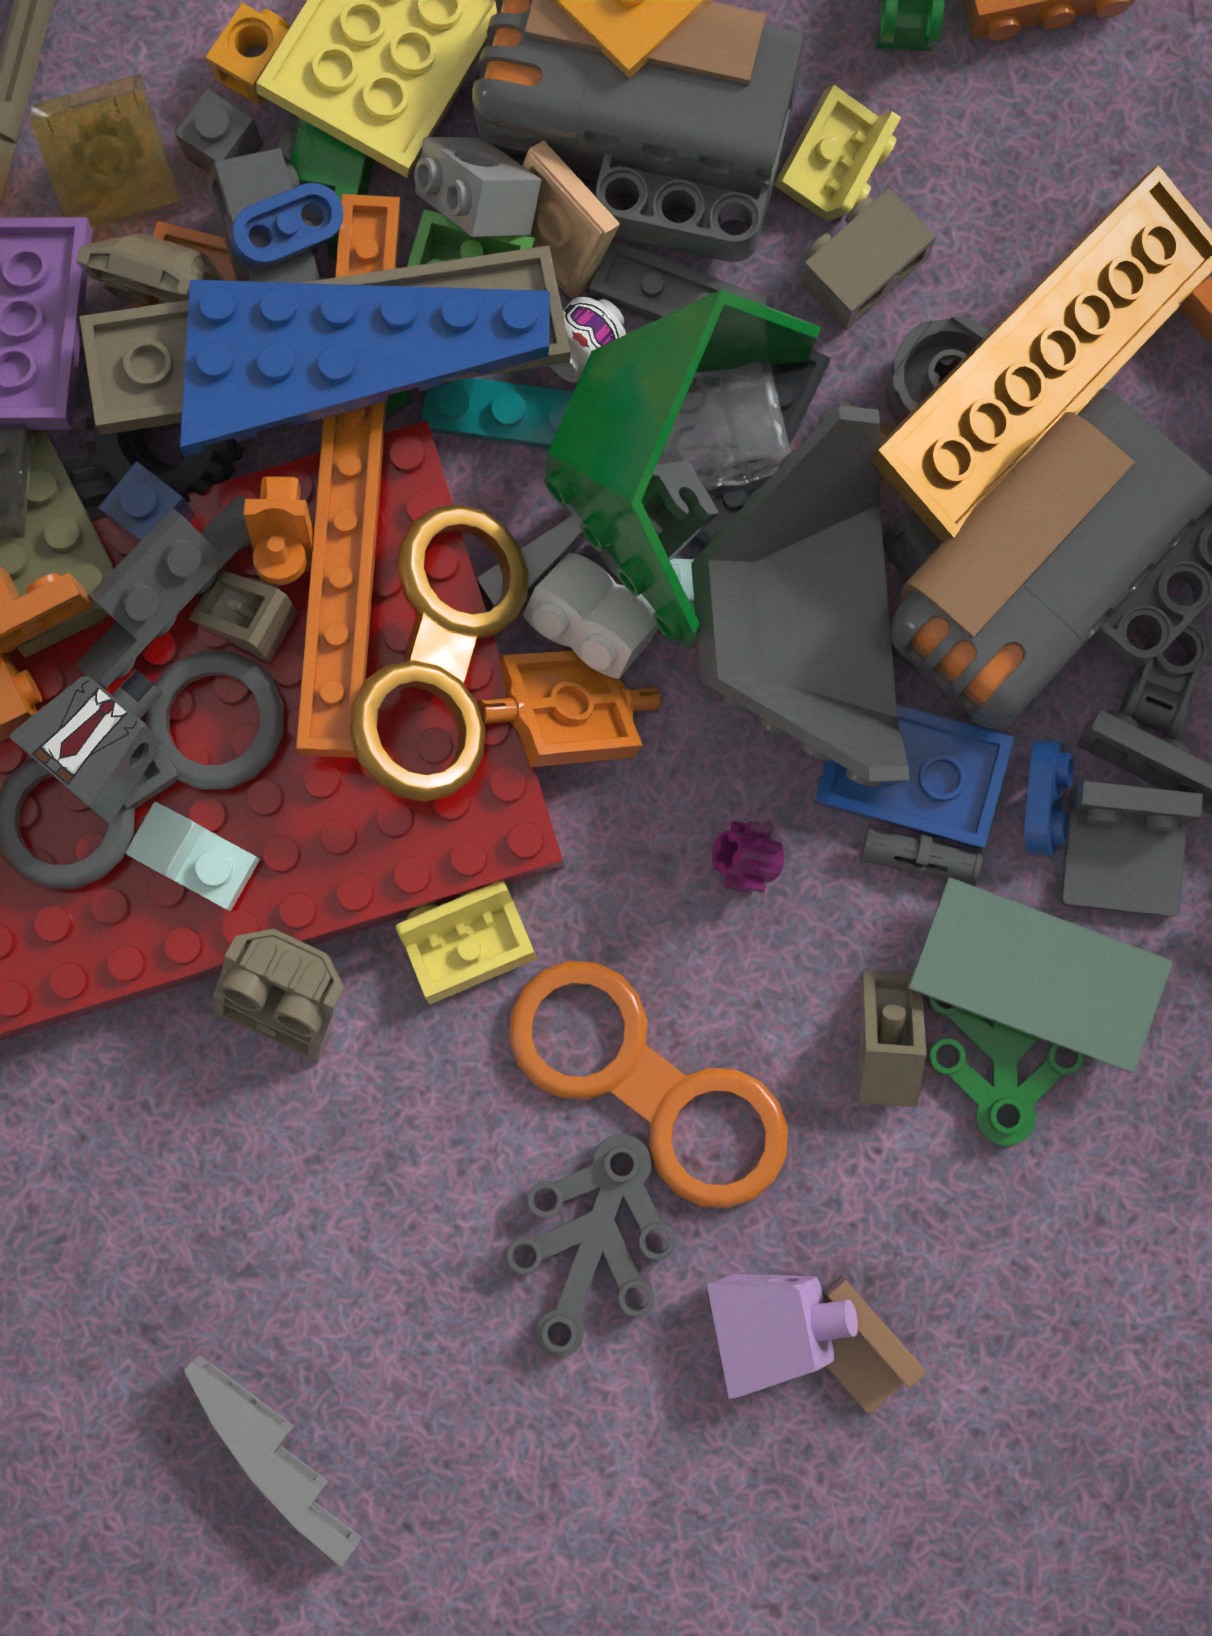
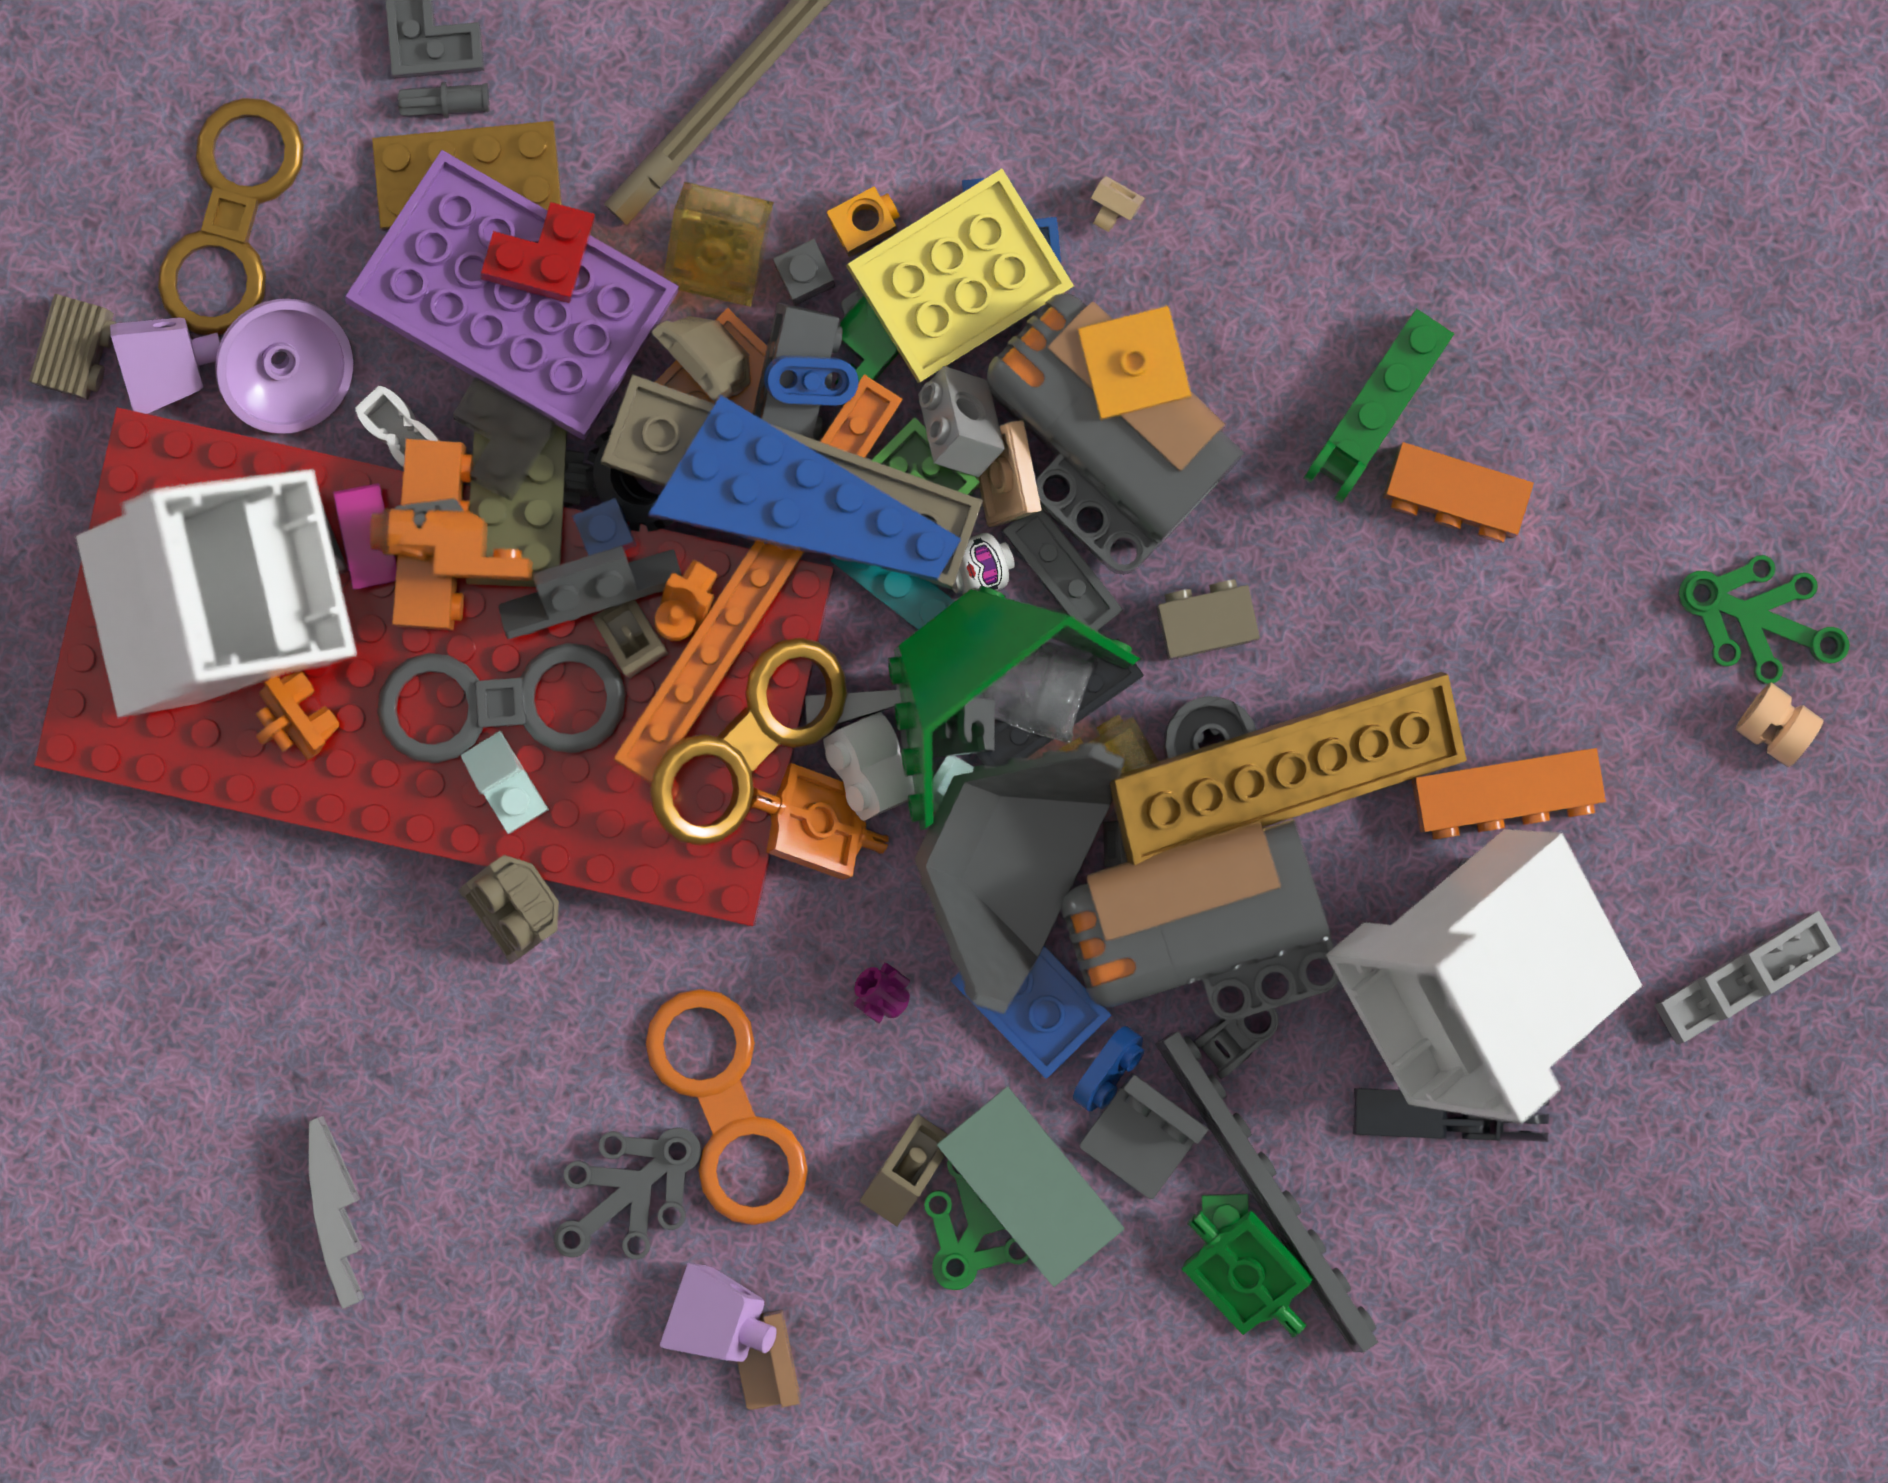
camera: 25 degrees right, 5 degrees up
(95, 740) = (483, 673): dark grey torso -> none
(465, 941) = (657, 940): light yellow bracket -> none
(837, 155) = (1232, 533): light yellow bracket -> none
(921, 856) = (1001, 1059): dark grey pin -> none

